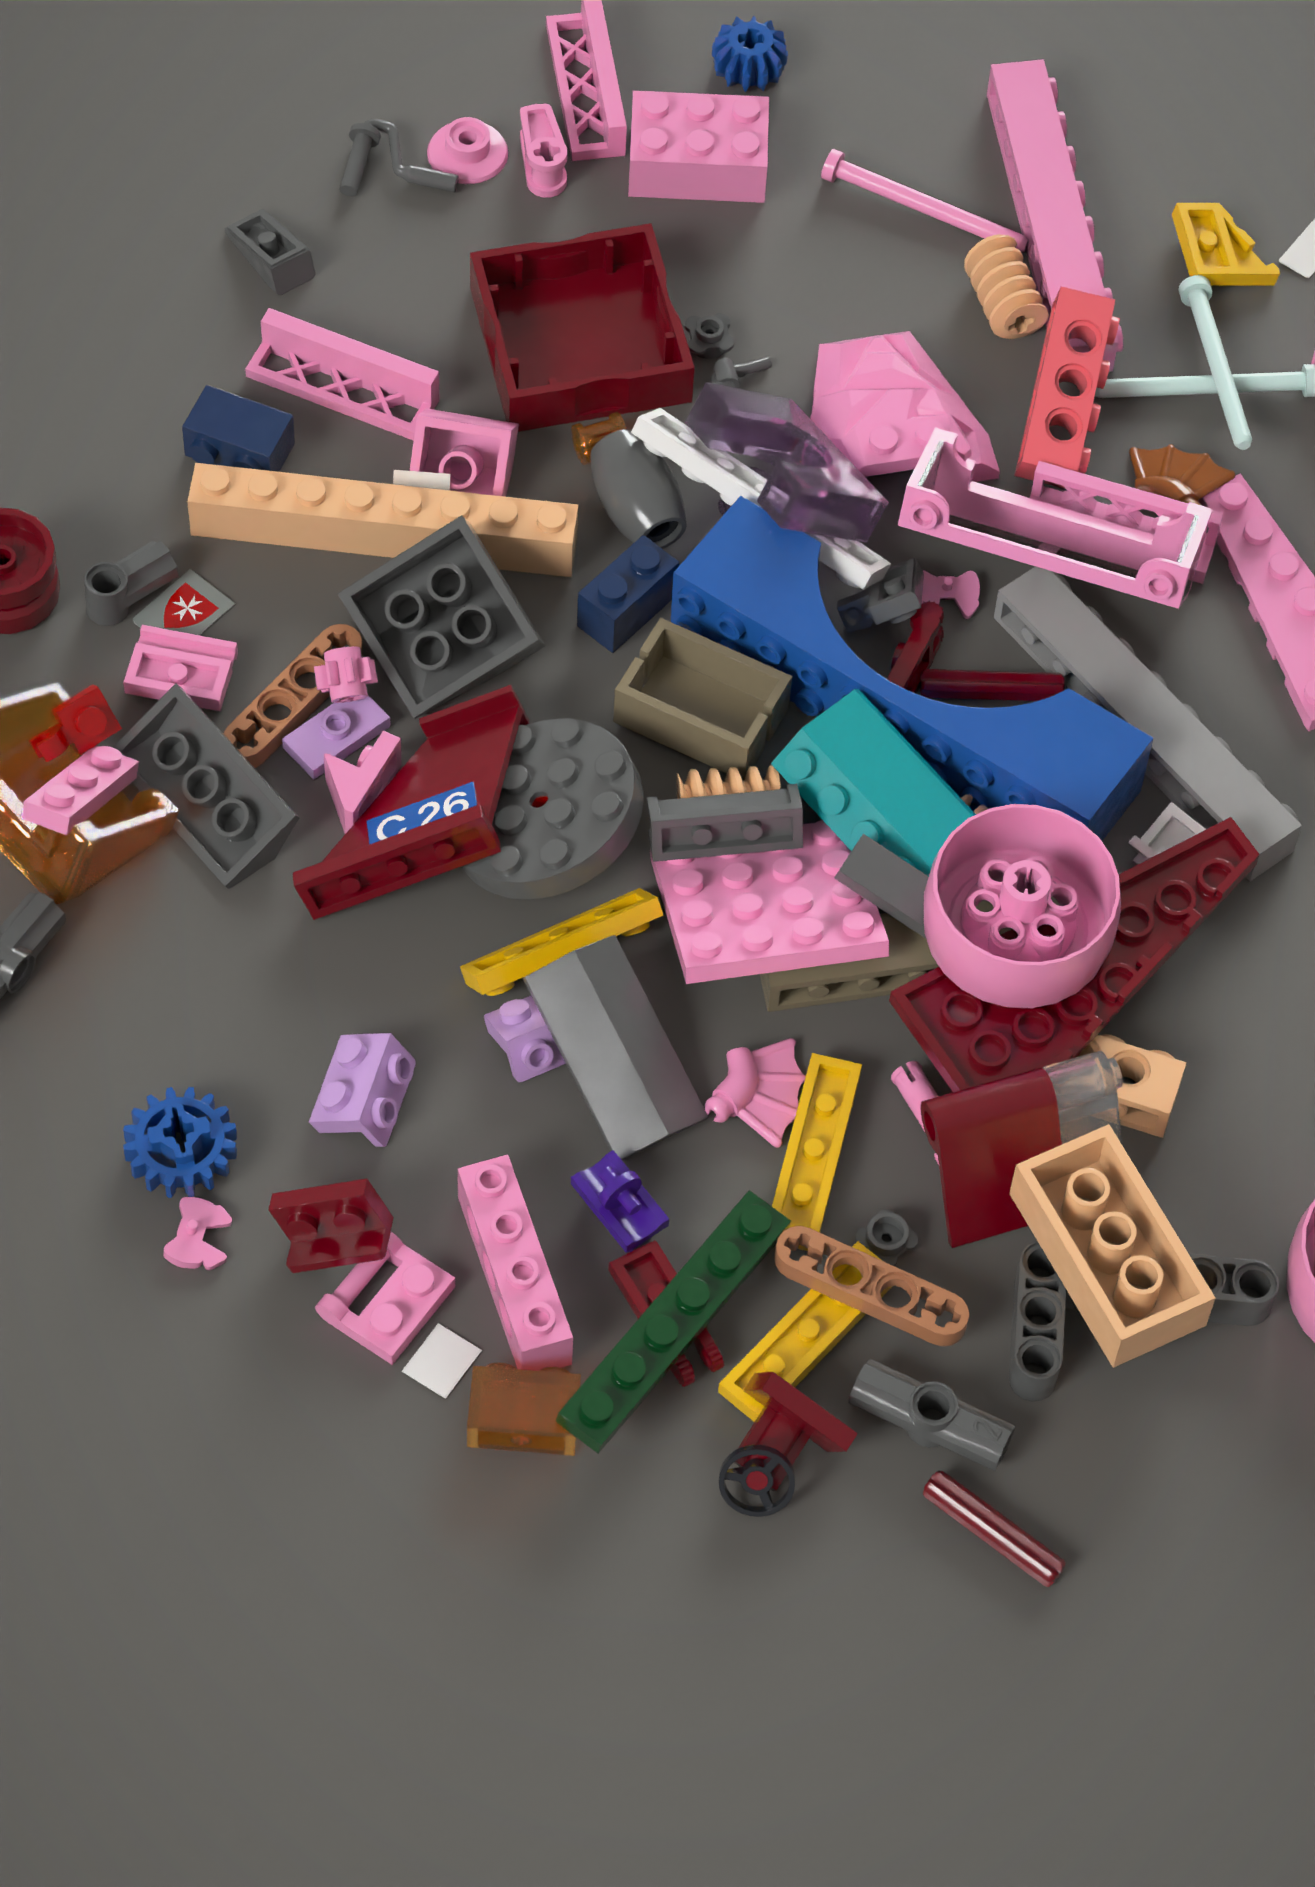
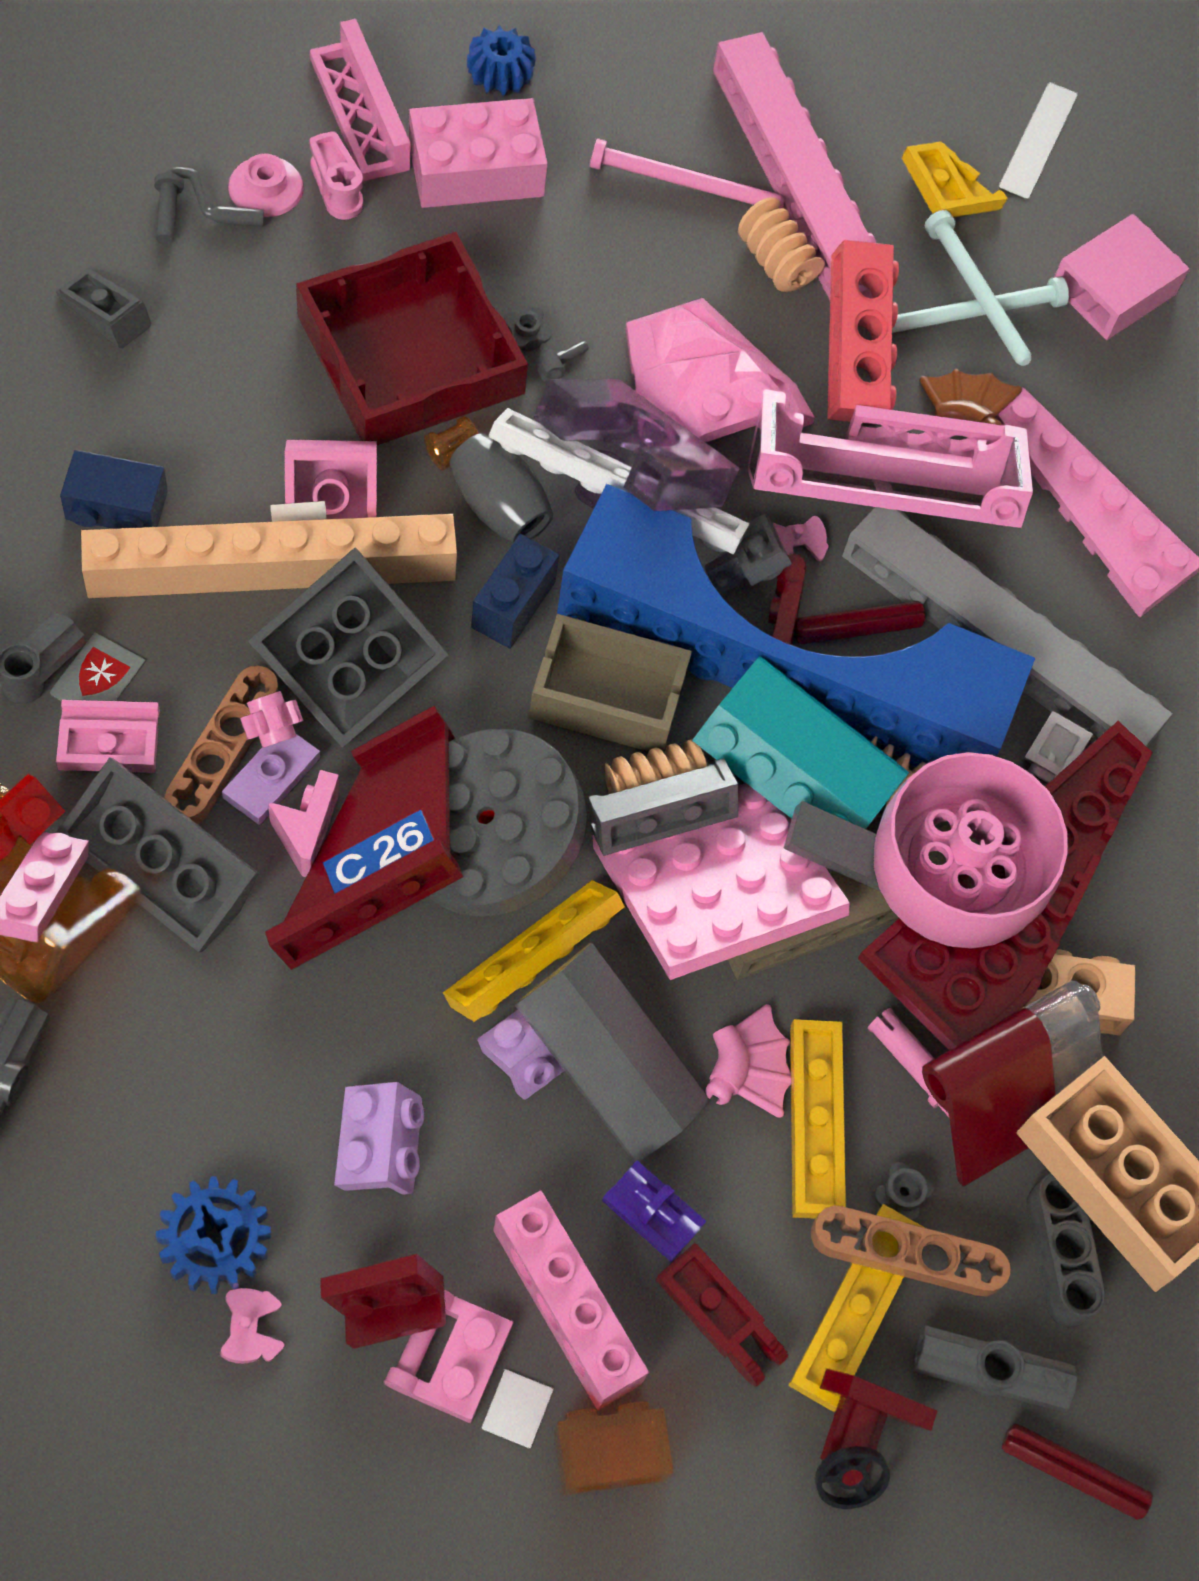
camera: 20 degrees left, 5 degrees up
(344, 360) = (205, 404): bright pink fence -> none
(672, 1322) = (736, 1335): dark green plate -> none

